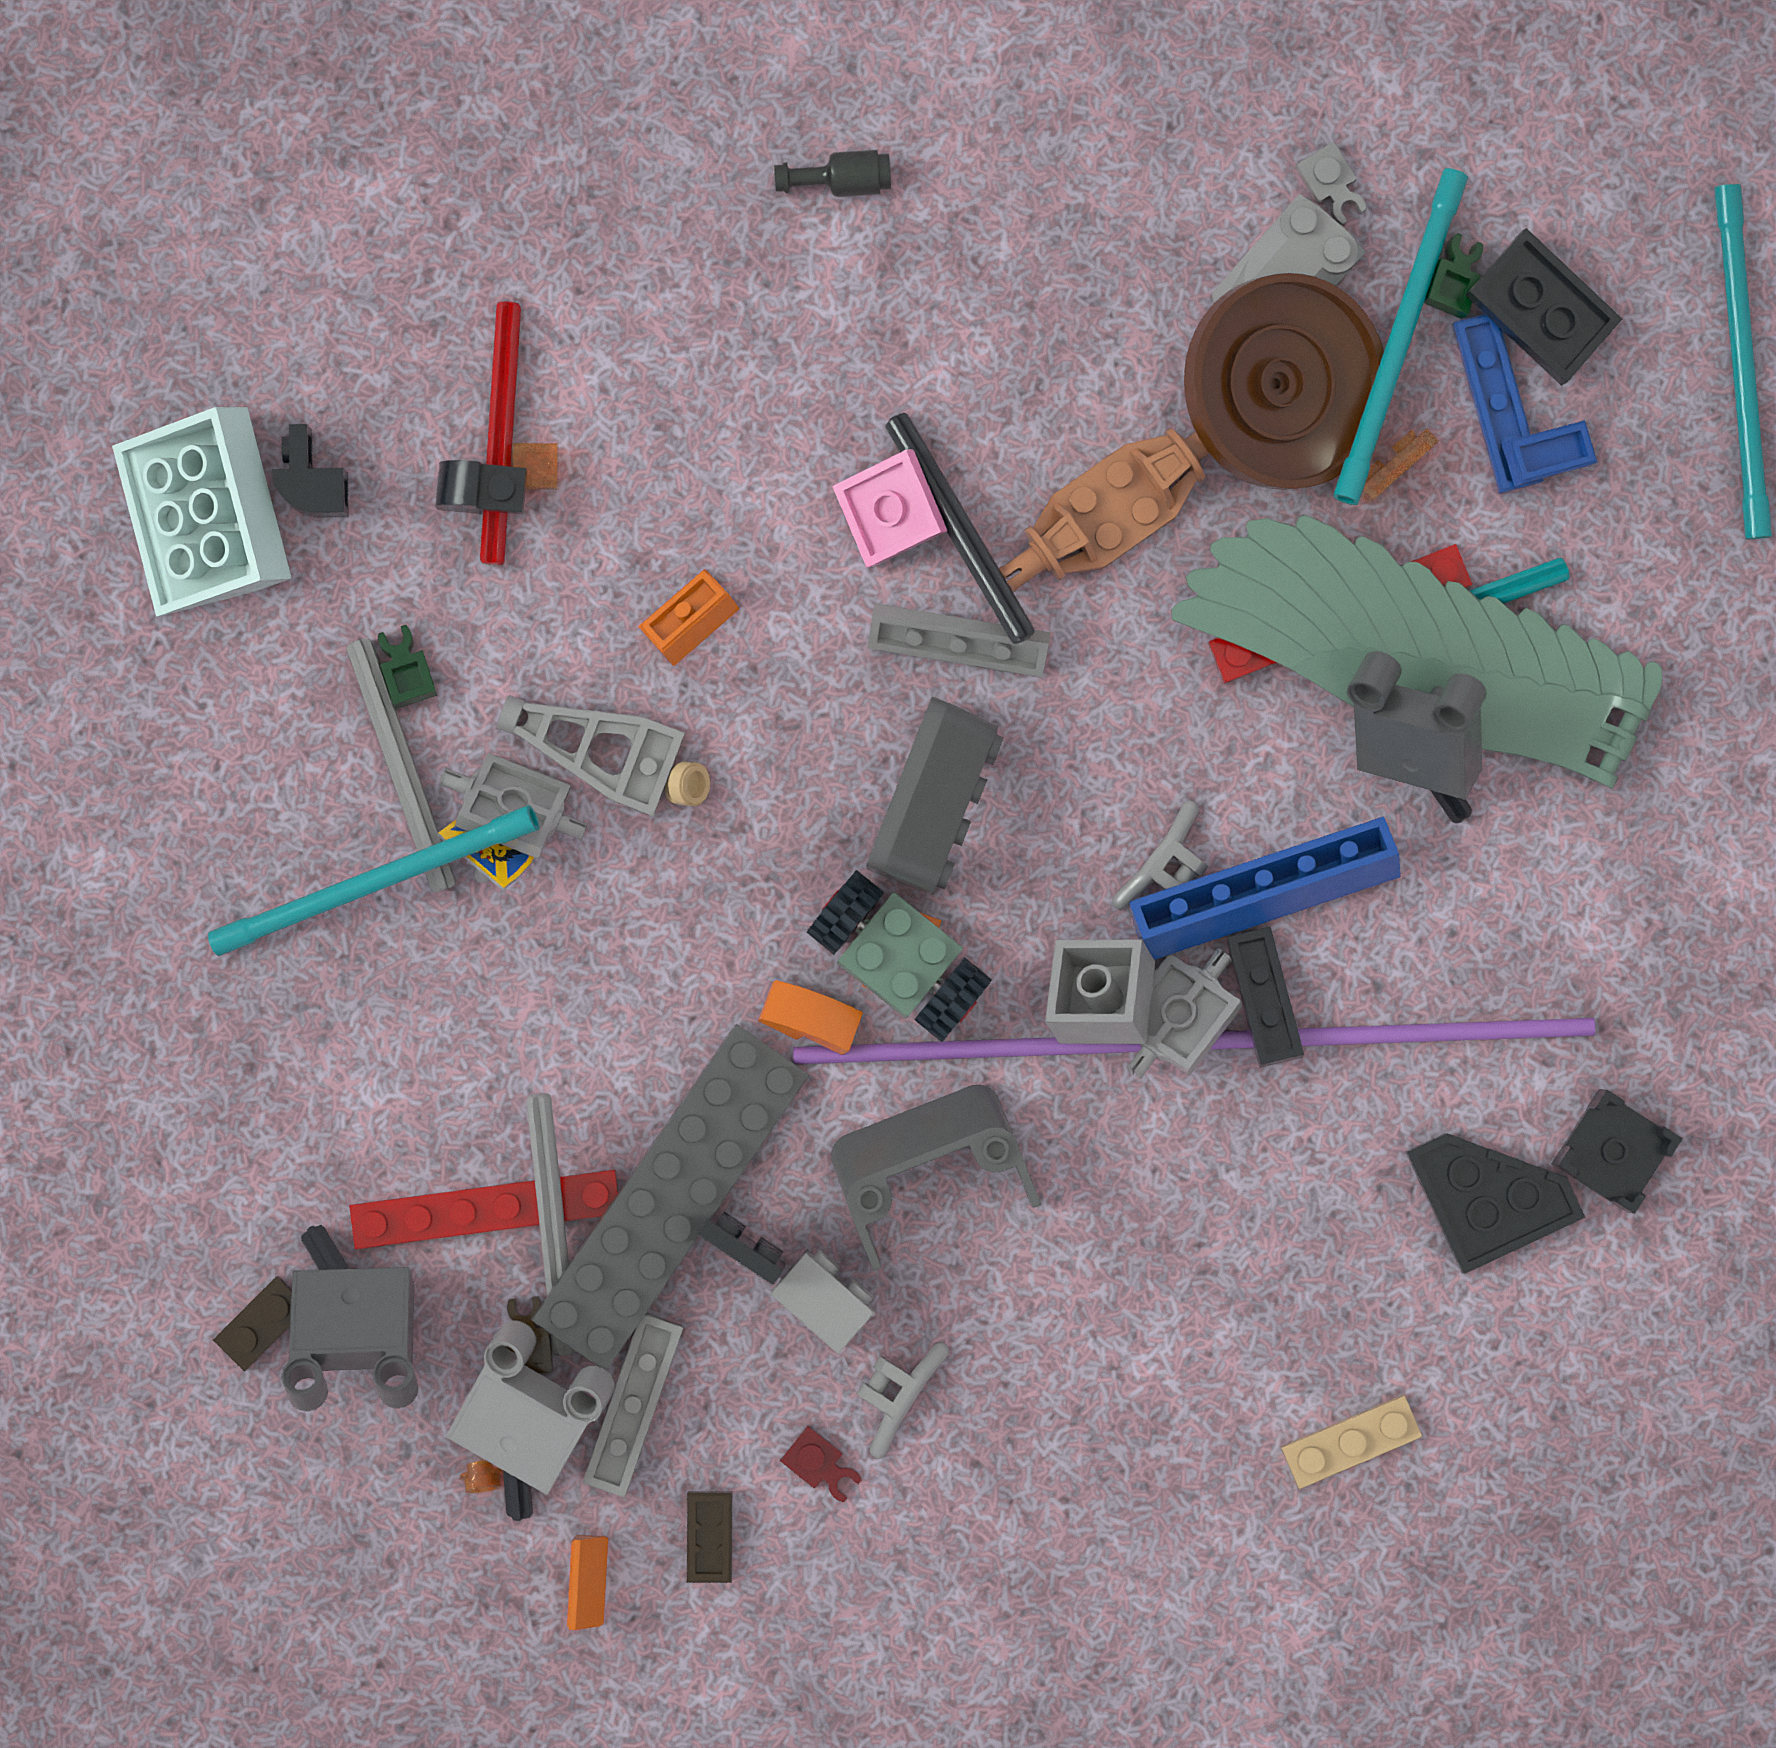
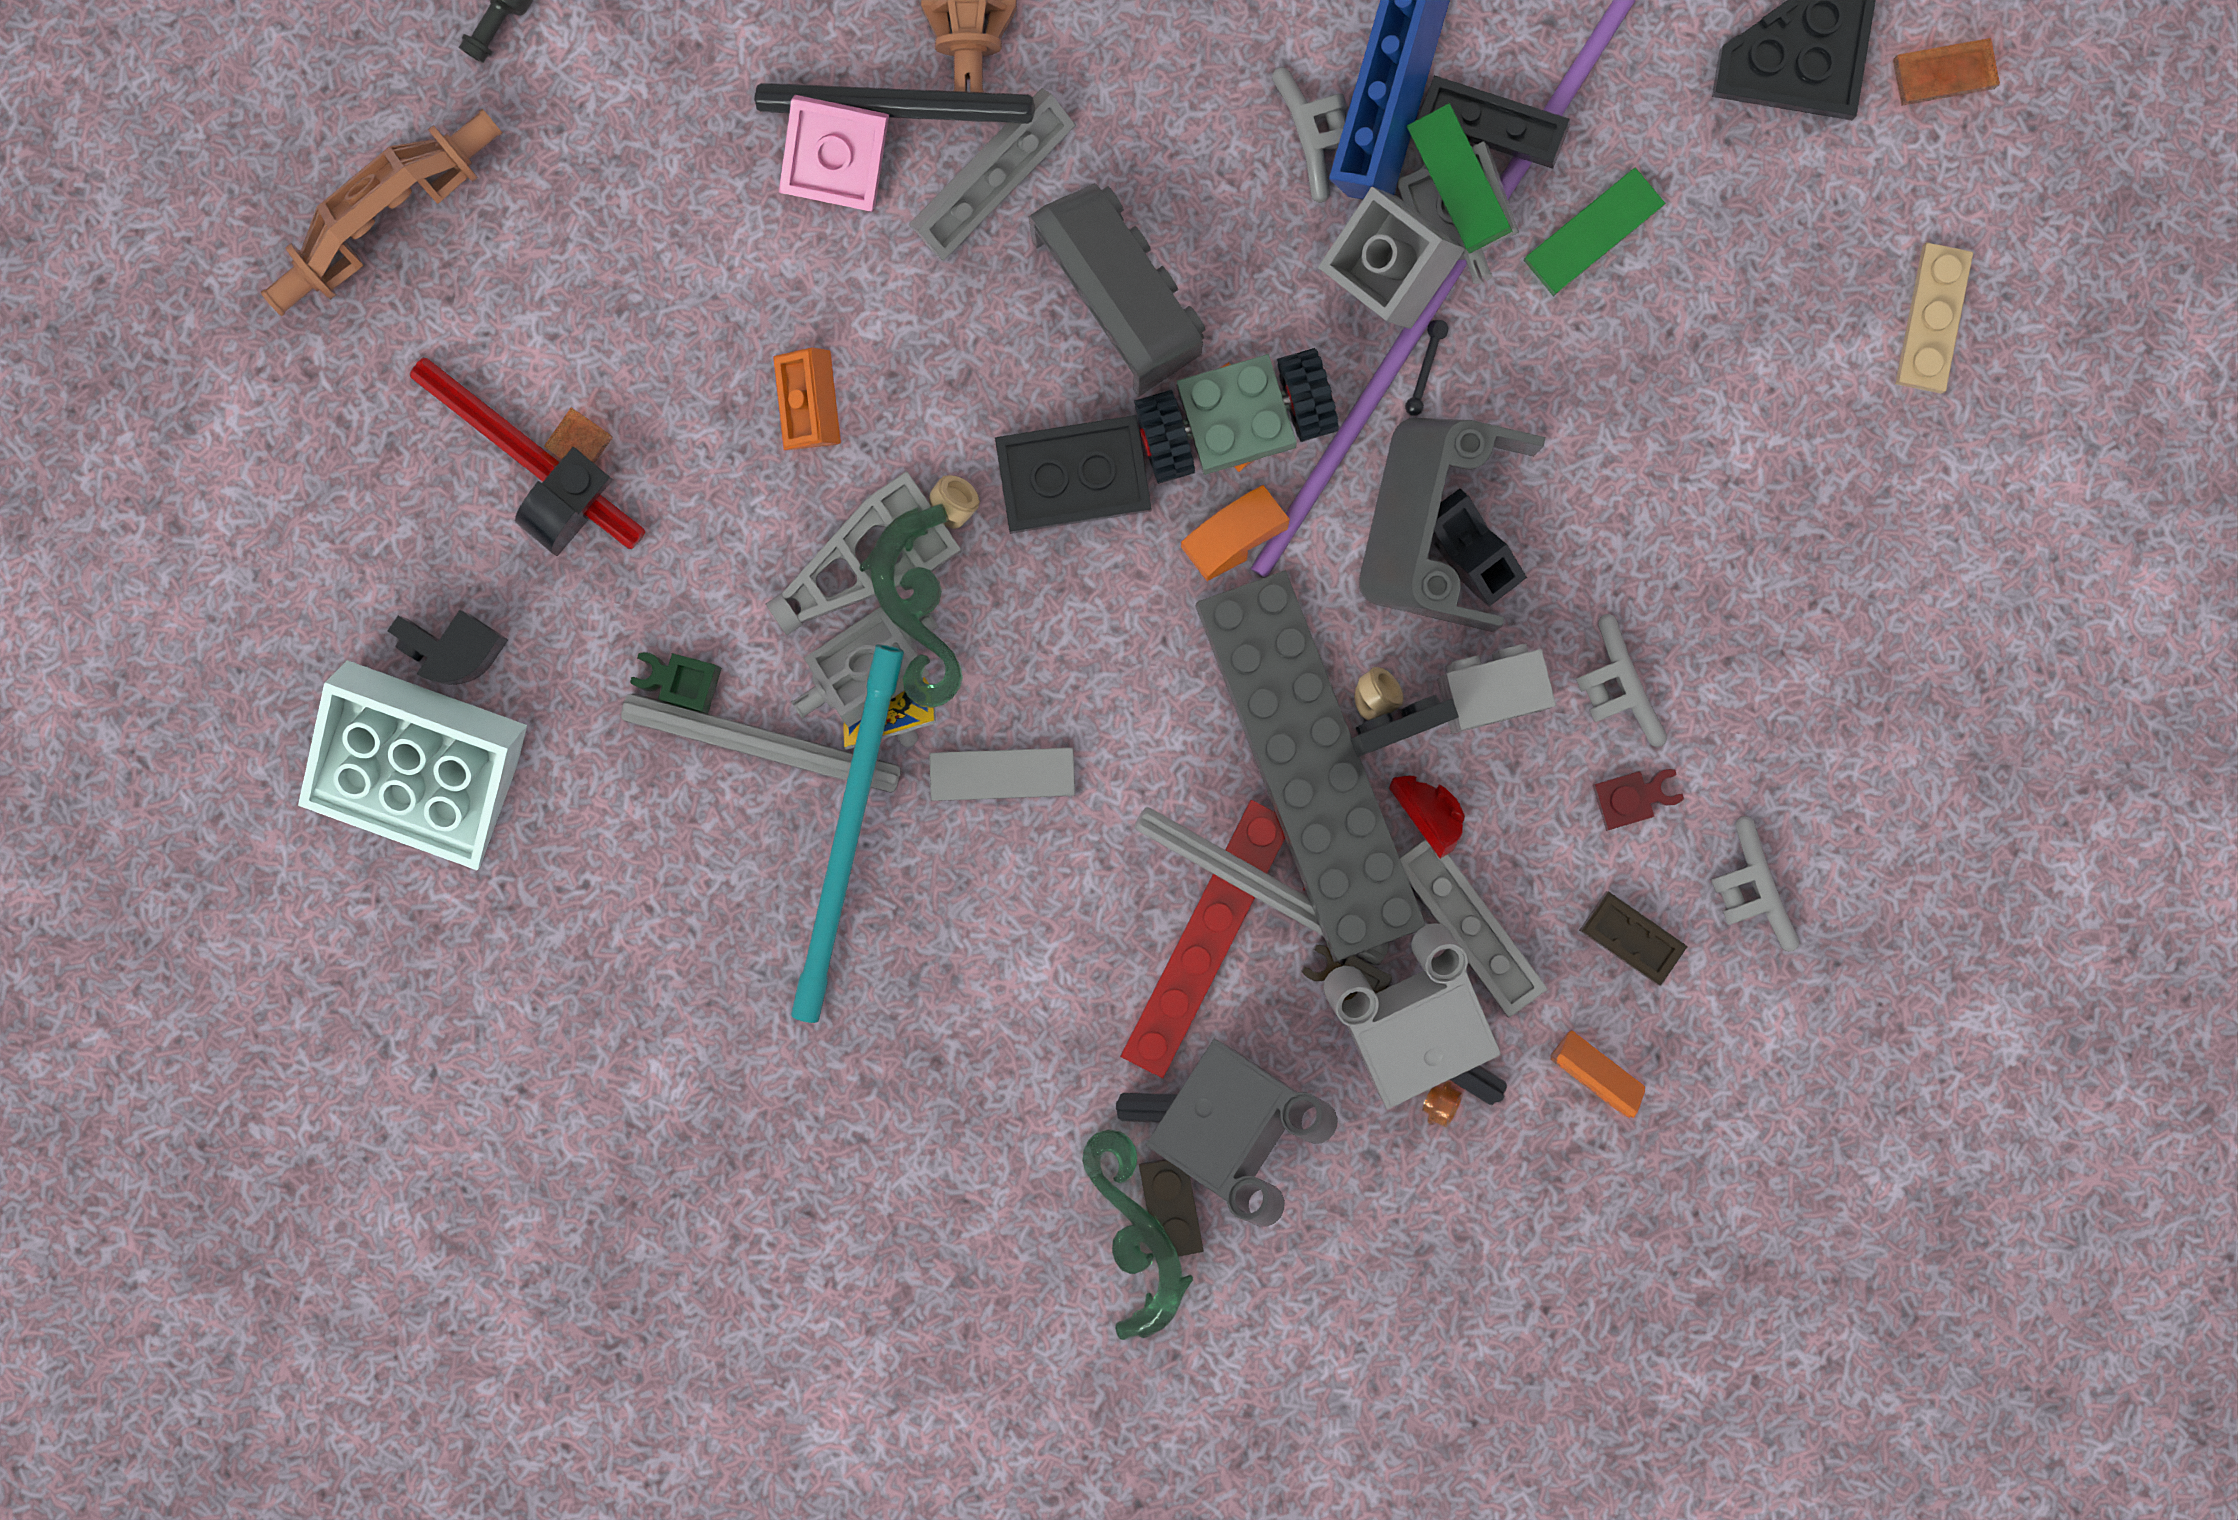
camera: 55 degrees left, 0 degrees up
(230, 1314) = (1126, 1250): none -> clear green plant
(503, 965) = (1002, 774): none -> light grey tile
(570, 807) = (905, 612): none -> clear green plant
(612, 177) = (377, 185): none -> nougat plate
(700, 1316) = (1432, 811): none -> red plate
(762, 1211) = (1377, 694): none -> tan tile
(770, 861) = (1073, 474): none -> black plate
(825, 1599) = (1763, 884): none -> light grey piece
(922, 1210) = (1475, 551): none -> black brick
(1076, 1064) = (1437, 330): none -> black hinge
(1198, 1001) = (1459, 178): none -> green tile
(1236, 1132) = (1594, 231): none -> green tile
(1548, 1320) = (1946, 71): none -> clear orange plate

